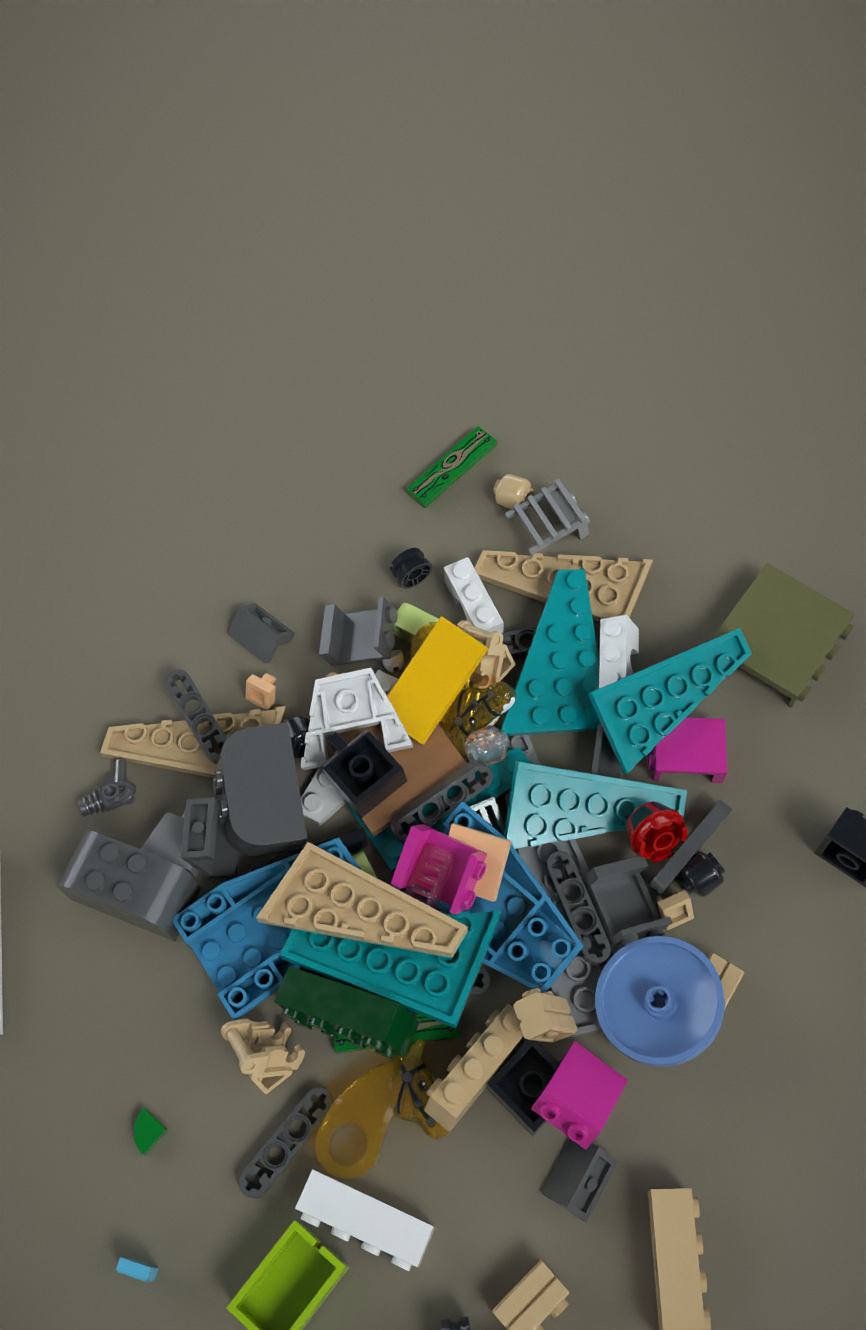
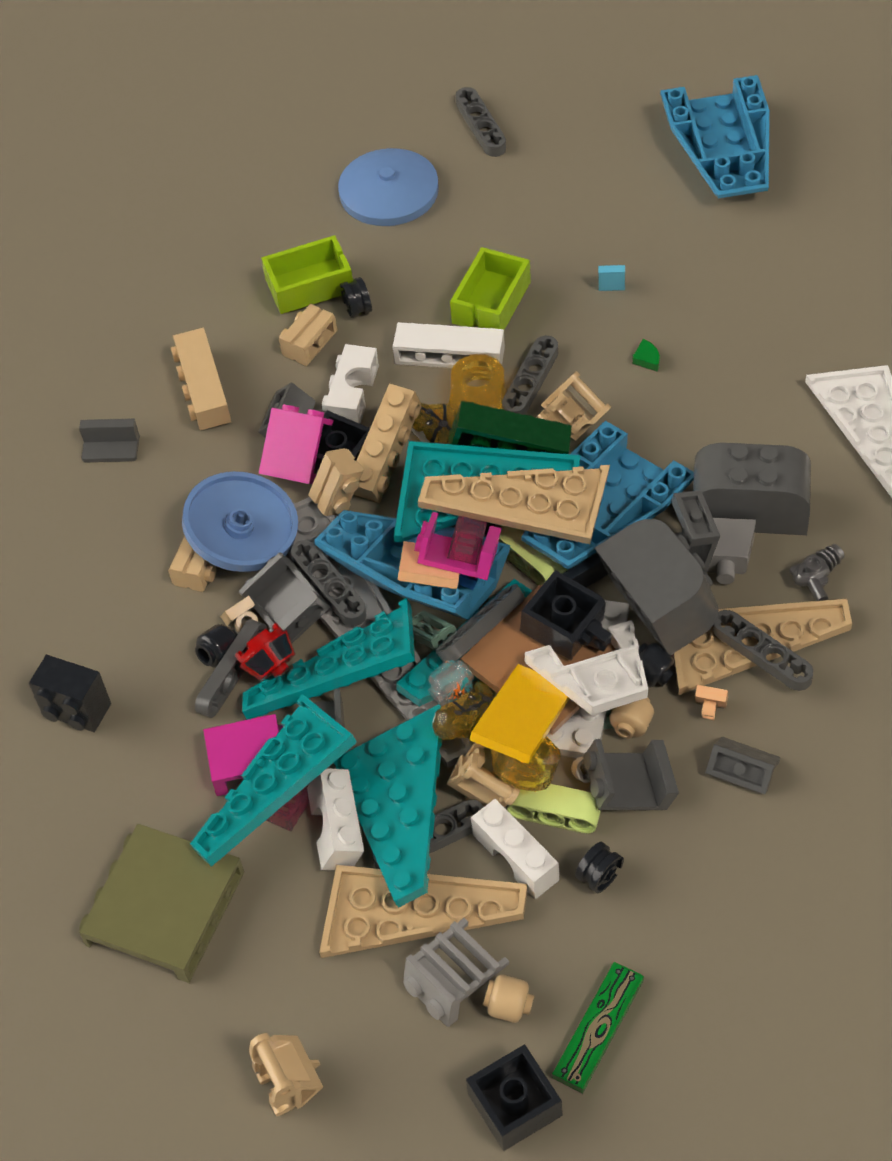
camera: 165 degrees right, 10 degrees down
(484, 1222) = (353, 368): none -> white arch
(529, 422) = (514, 1097): none -> black brick
(695, 468) = (288, 1067): none -> tan piece
(799, 1203) = (109, 440): none -> dark grey panel

